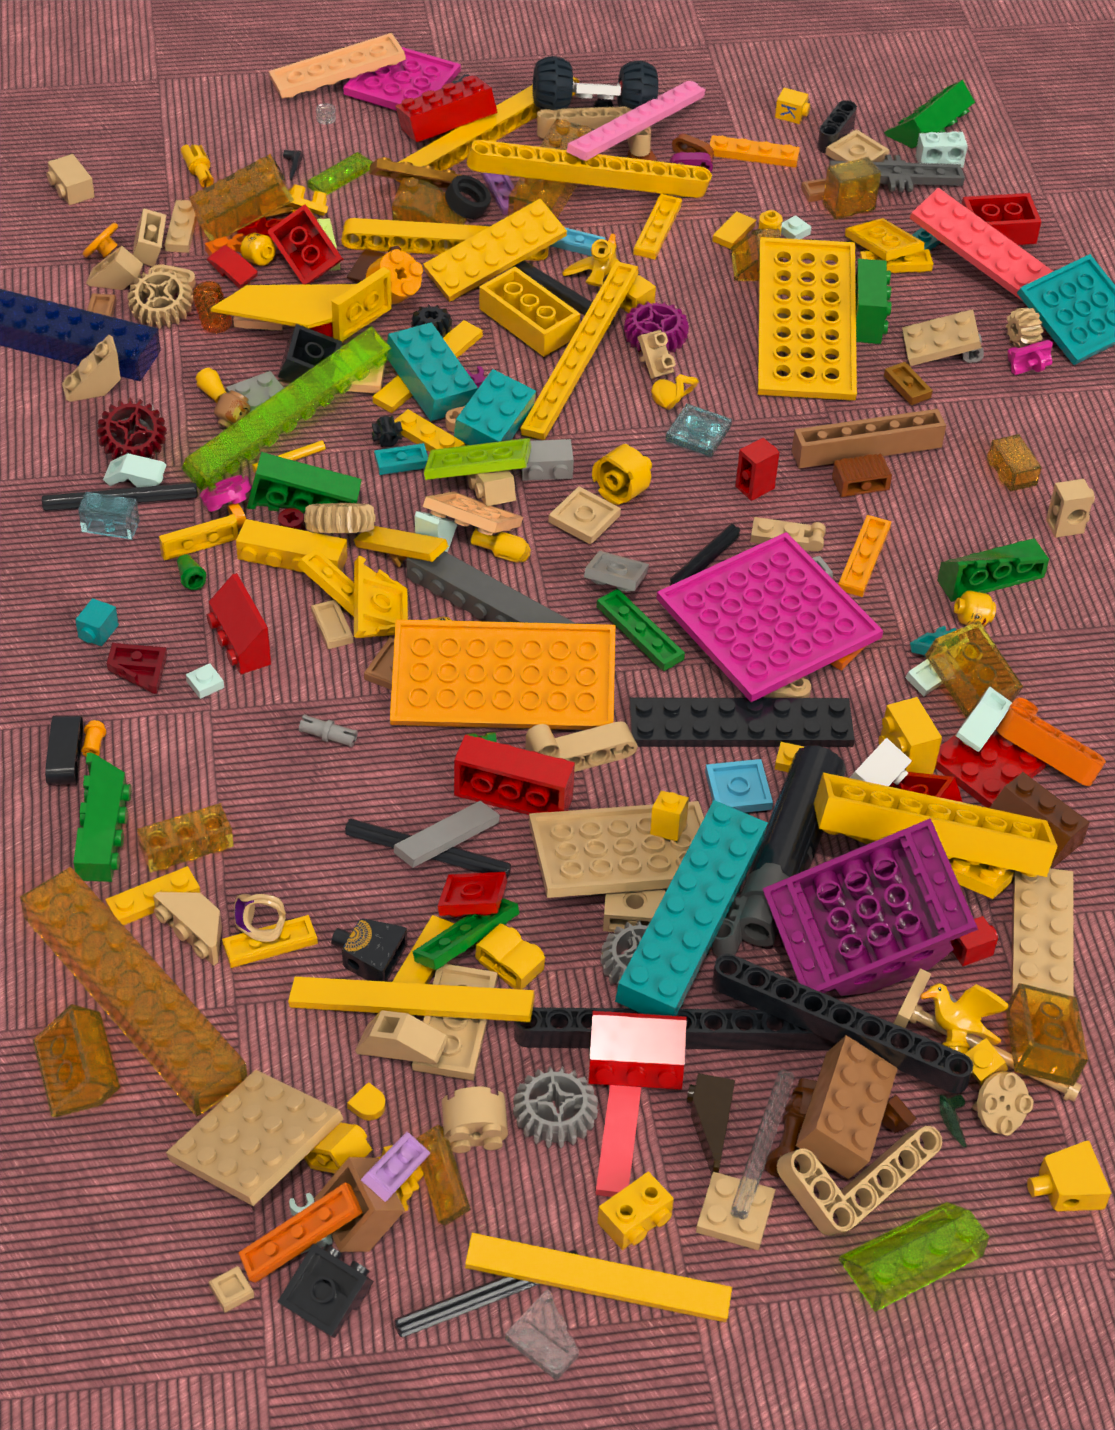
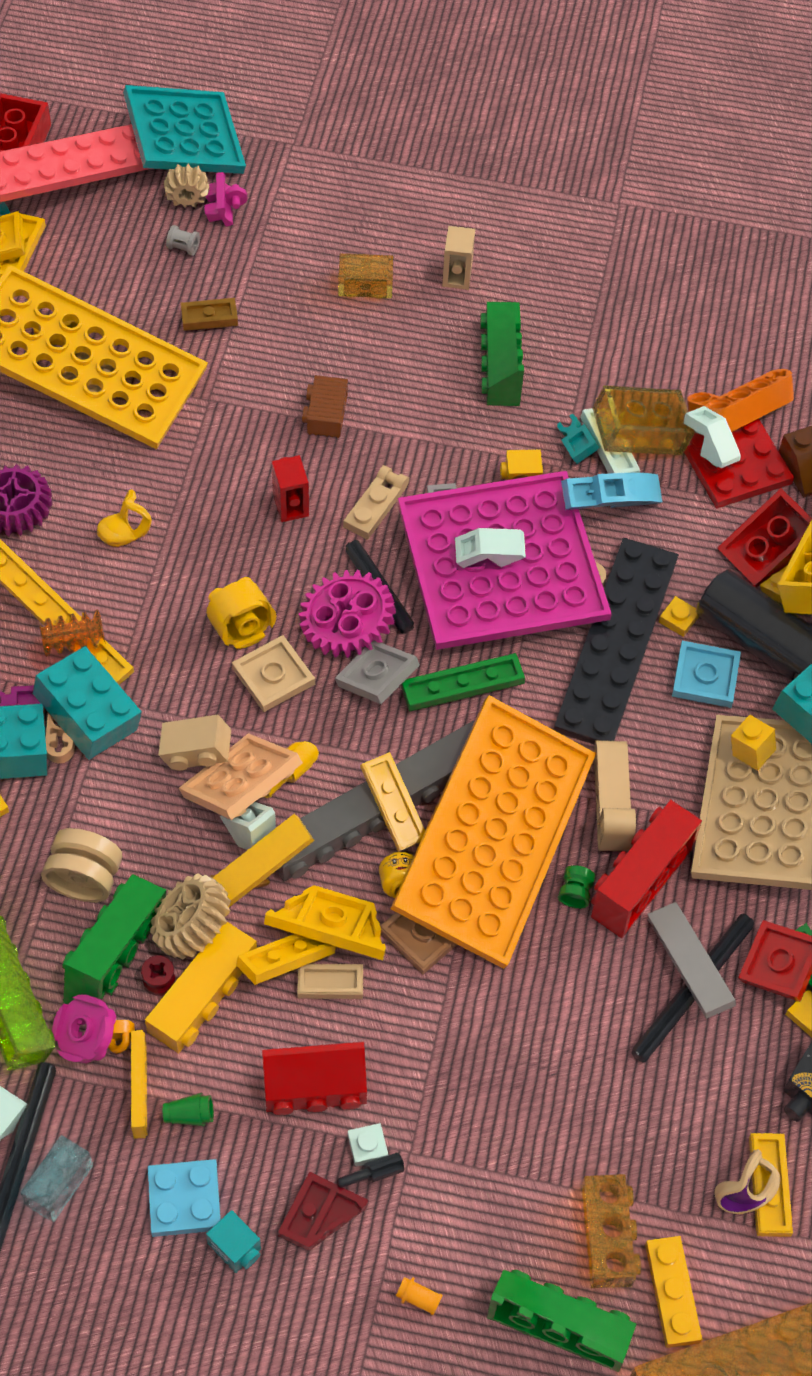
camera: 70 degrees left, 10 degrees up
(64, 749) = (427, 1333): black beam -> none
(125, 588) = (183, 1197): none -> medium azure plate
(182, 686) = (375, 1170): none -> black axle
(192, 920) = (733, 1253): tan slope -> none
(300, 452) = (36, 945): yellow bar -> none
(328, 730) = (497, 1033): light grey pin -> none
(355, 449) = (82, 865): none -> tan wheel
(386, 431) = (51, 821): black gear -> none
(401, 459) = (104, 814): teal plate -> none
(422, 431) = (70, 785): yellow plate -> none
(478, 458) = (159, 743): lime tile -> none
(499, 597) = (393, 801): none -> yellow tile
(548, 383) = (72, 632): none -> clear orange piece
(549, 460) = (174, 679): light grey brick -> none
(656, 354) = (60, 515): tan hips -> none
(663, 540) = (347, 613): none -> dark pink gear
(698, 430) = (191, 521): clear light blue plate -> none
(766, 594) = (498, 545): none -> light aqua slope
(864, 555) = (432, 449): light orange tile -> none
(868, 437) = (283, 378): medium nougat brick -> none
(871, 300) = (86, 282): green brick -> none
(879, 610) = (521, 464): none -> yellow brick
(879, 663) = (612, 490): none -> medium azure slope
(884, 765) = (743, 549): white slope -> none
(913, 733) = (709, 506): yellow brick -> none
(941, 337) = (162, 258): tan plate -> none
(975, 607) = (550, 388): yellow head -> none

